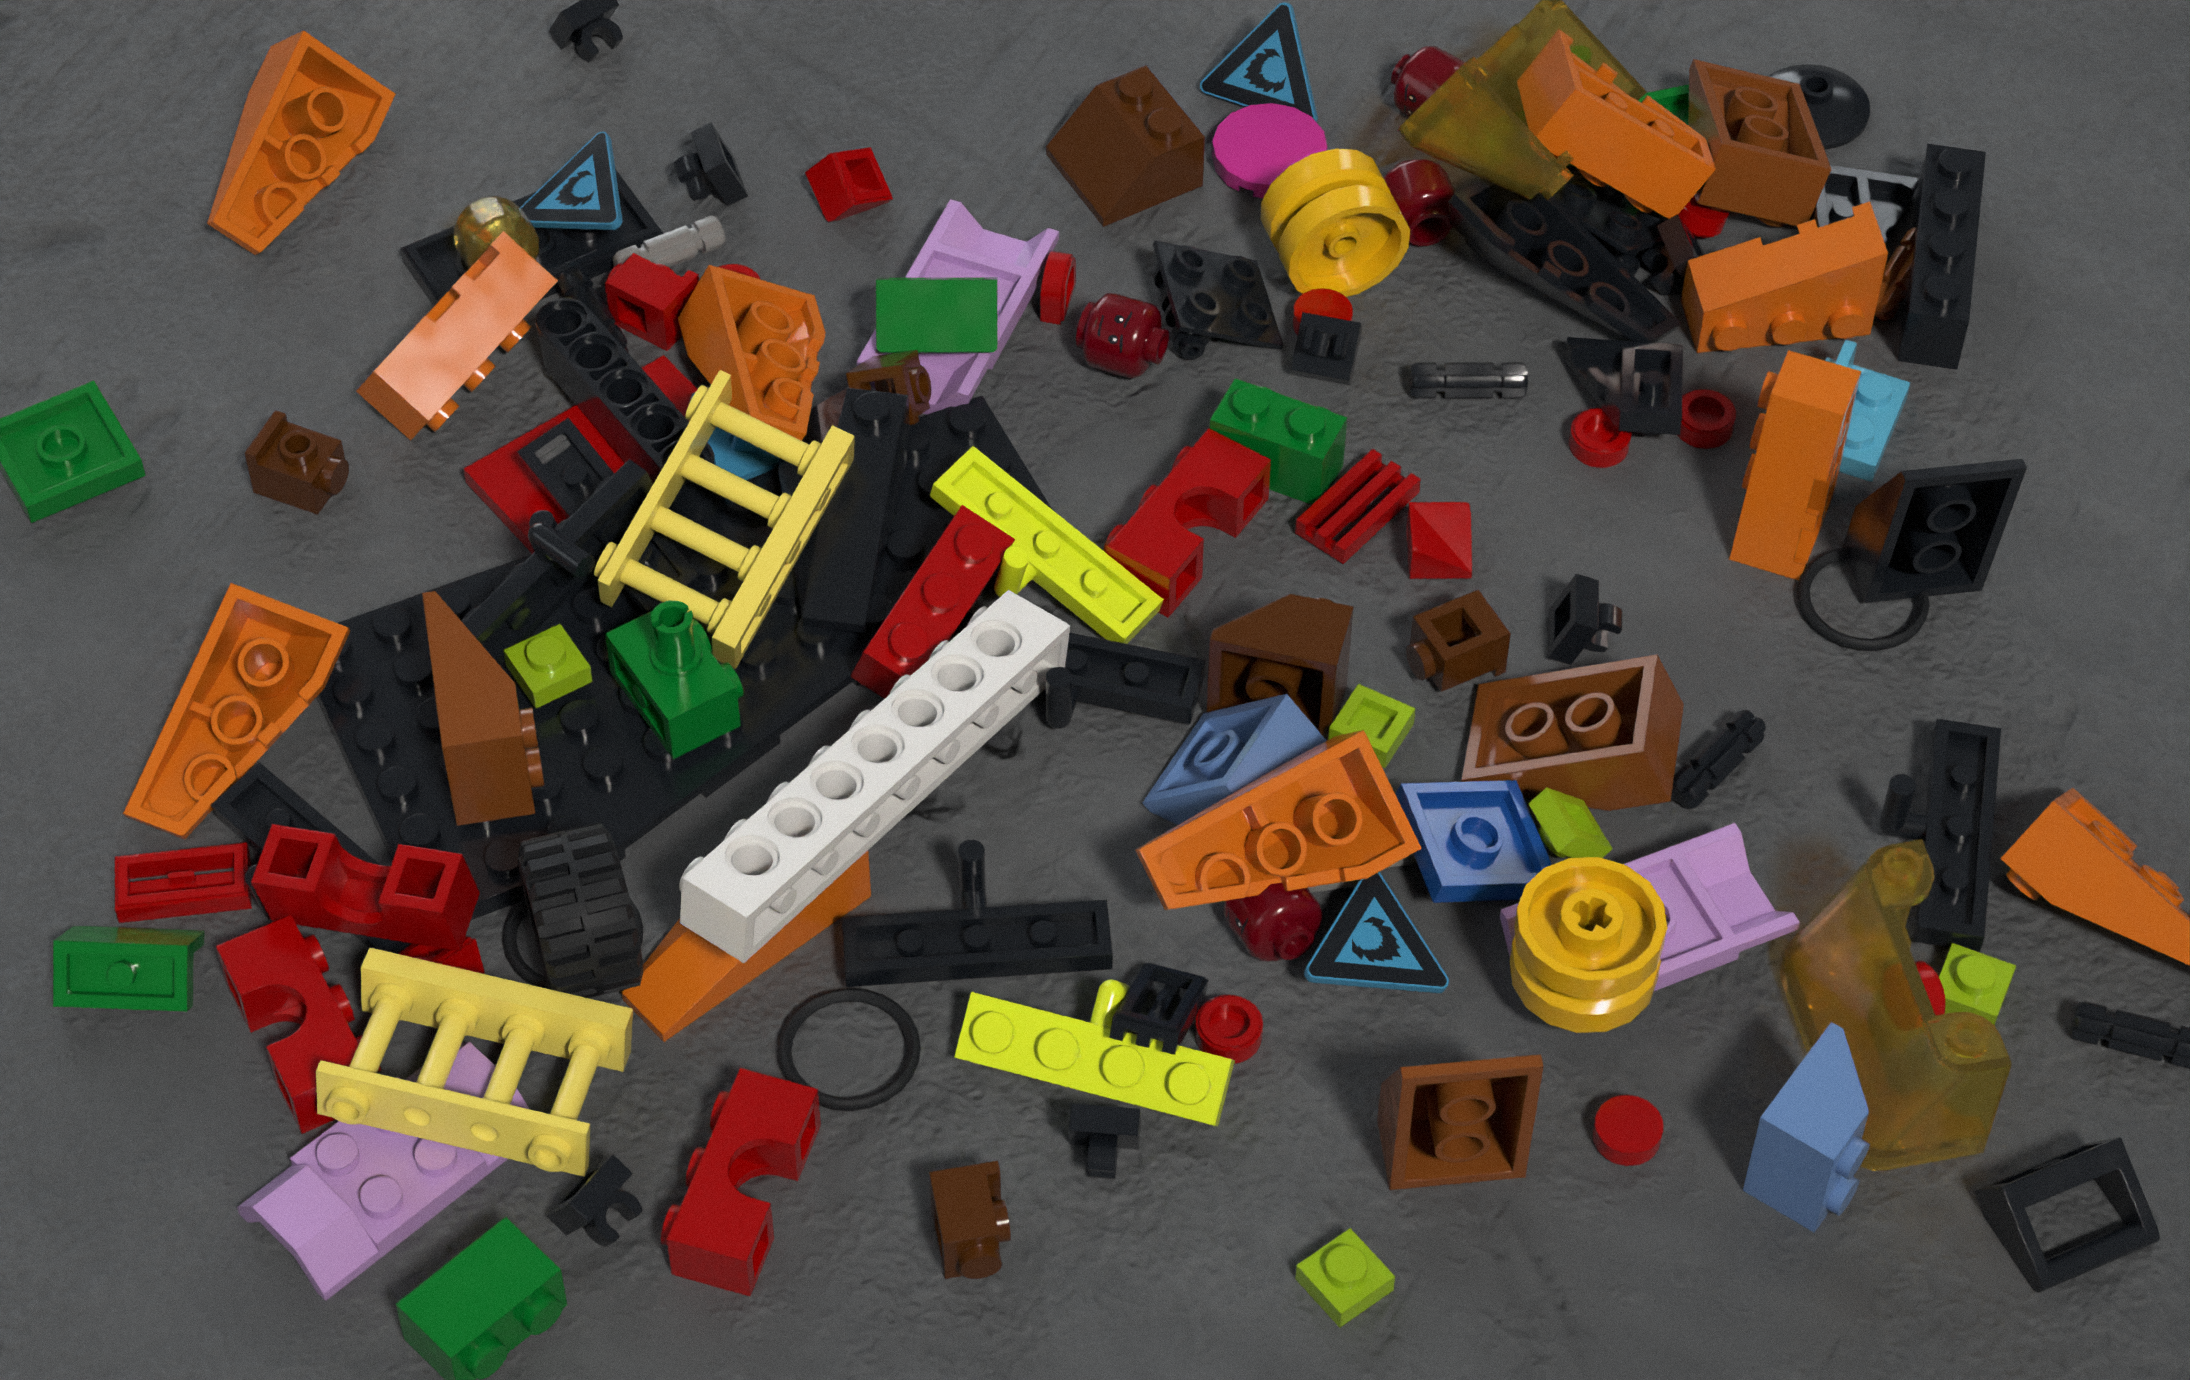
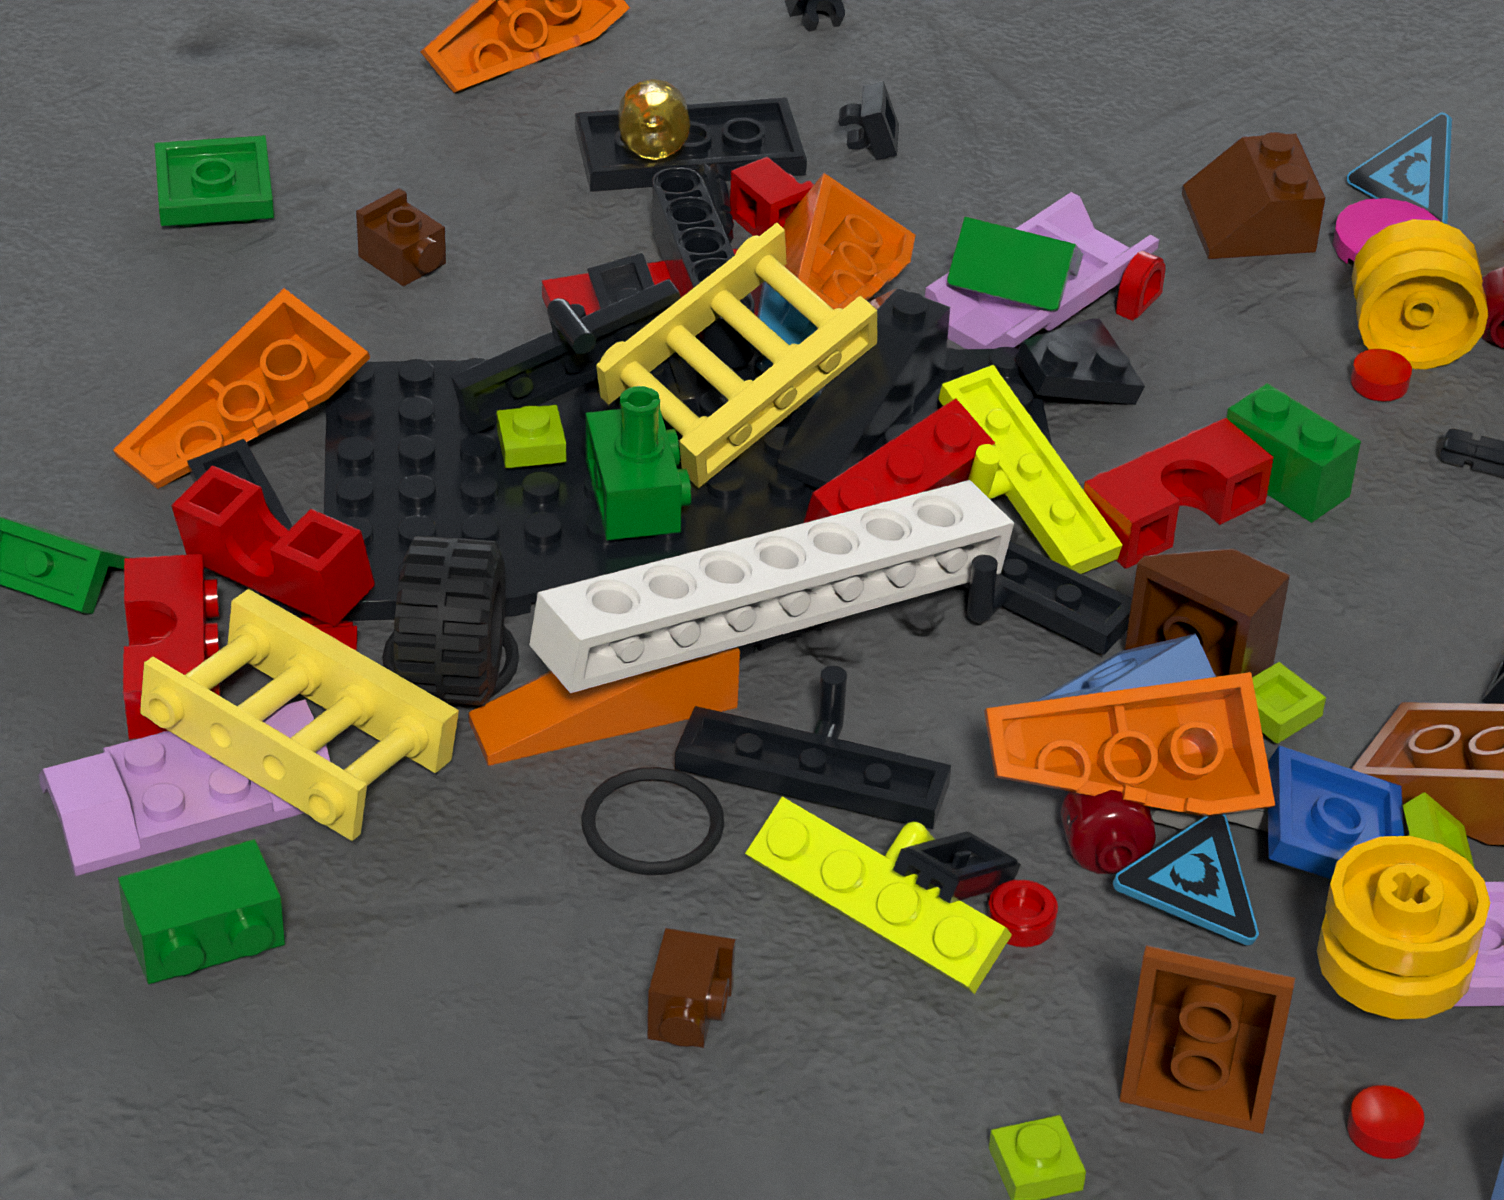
camera: 20 degrees right, 10 degrees down
(182, 891) = (125, 517): red tile -> none
(456, 338) = (581, 179): orange wedge -> none
(480, 724) = (433, 449): dark orange slope -> none
(581, 192) = (745, 105): piece -> none
(590, 1199) = (352, 859): black tile -> none
(678, 244) = (843, 169): light grey axle -> none
(757, 1131) = (453, 918): red arch -> none
(848, 183) = (989, 164): red slope -> none
(895, 374) = (965, 305): reddish brown brick -> none
(1038, 401) = (1079, 364): none -> black wing
(1104, 1132) = (853, 957): black tile -> none
(1121, 335) = (1180, 333): dark red head -> none
(1212, 297) = (1284, 329): black hinge -> none
(1312, 523) = (1341, 522): red tile -> none
(1326, 348) = (1372, 396): black tile -> none
(1439, 540) = (1413, 573): red slope -> none
(1458, 642) = (1393, 656): reddish brown brick -> none

